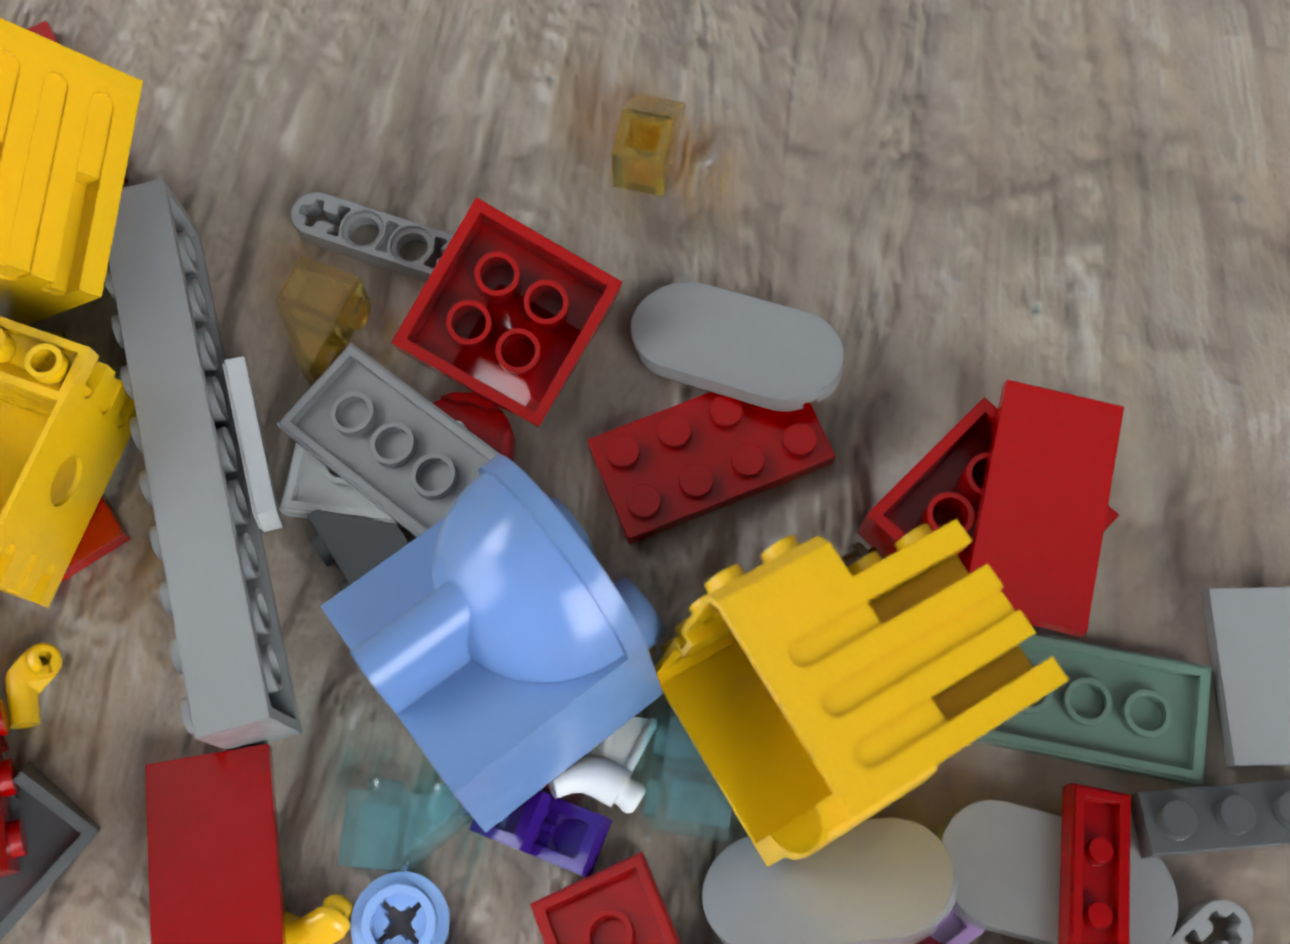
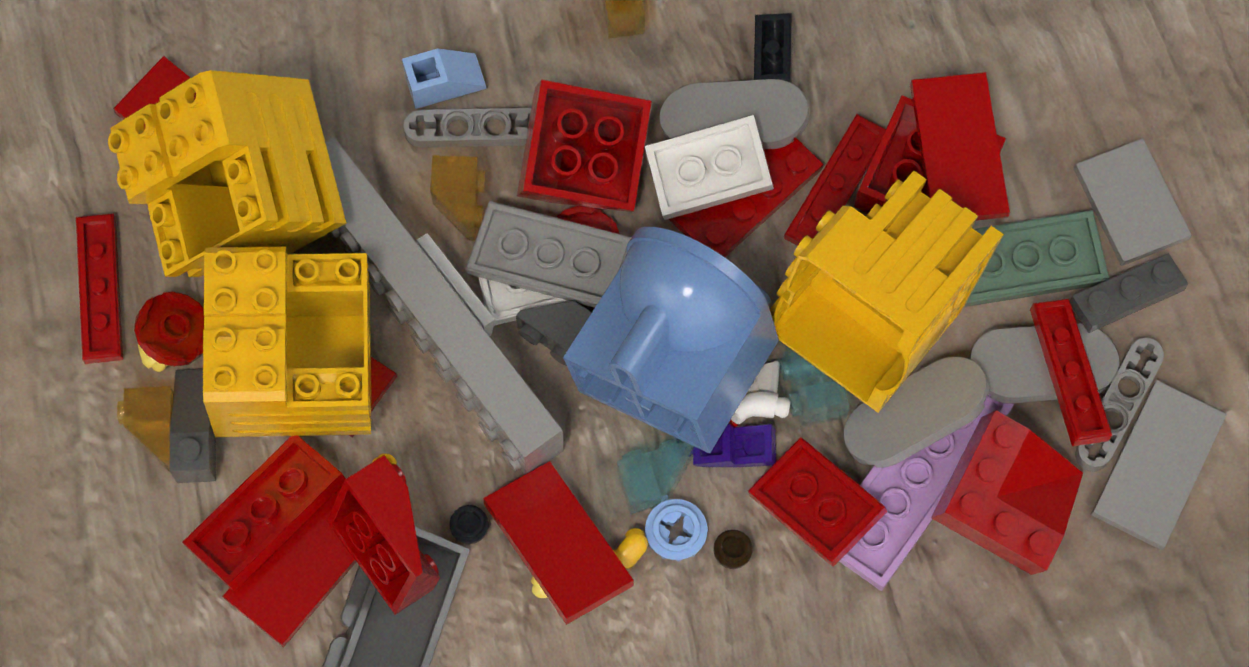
camera: 25 degrees left, 0 degrees up
(115, 793) = (469, 524): none -> black plate
(367, 157) = (442, 76): none -> light blue slope
(666, 403) = (709, 167): none -> white plate
(829, 270) = (773, 47): none -> black brick
(849, 484) = (838, 178): none -> red tile

